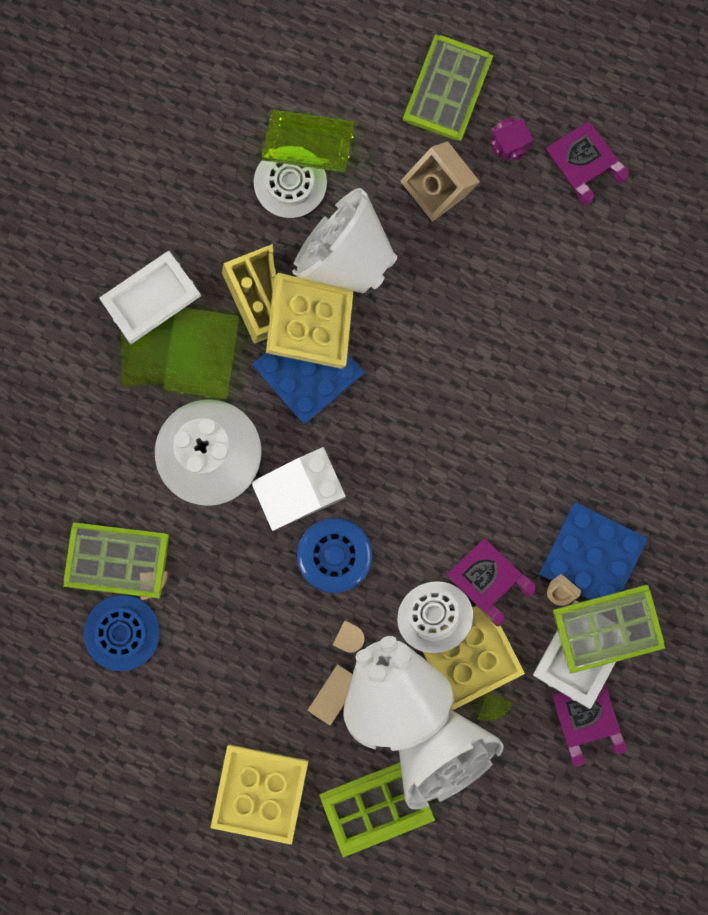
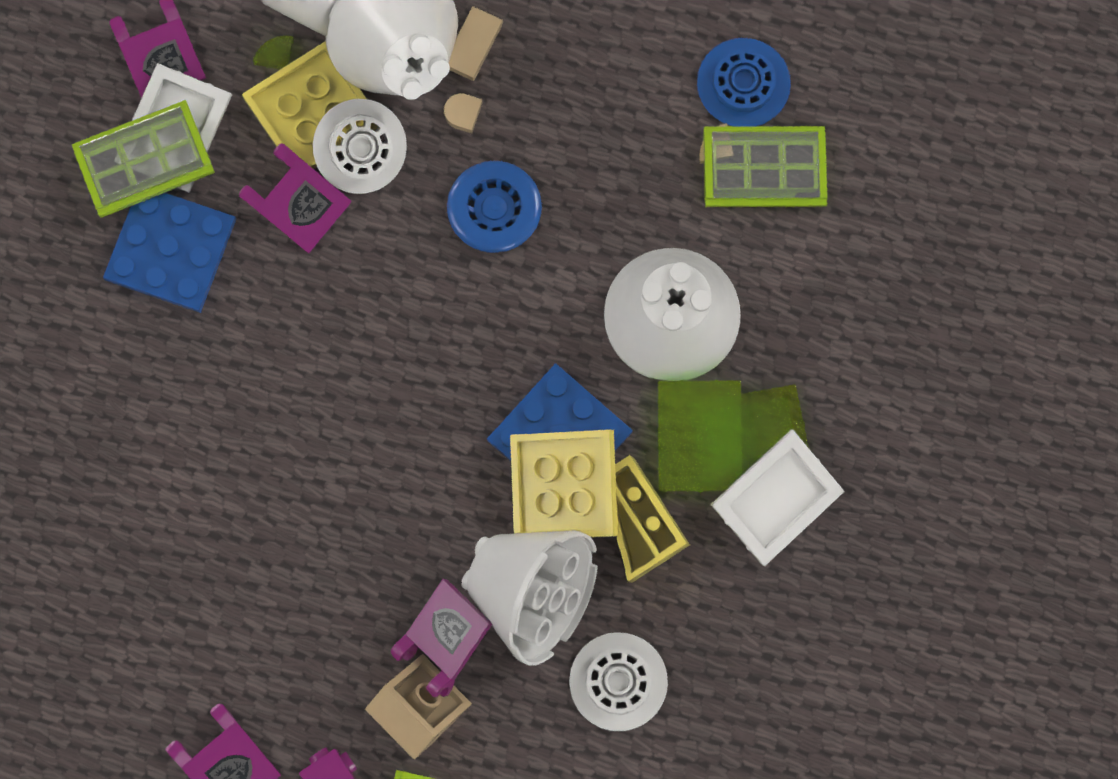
camera: 170 degrees right, 5 degrees down
(298, 489) = (548, 281): white slope -> none
(308, 141) = (601, 735): clear neon green piece -> none
(412, 224) = (447, 633): none -> magenta flag
(562, 591) = (204, 198): tan tile -> none

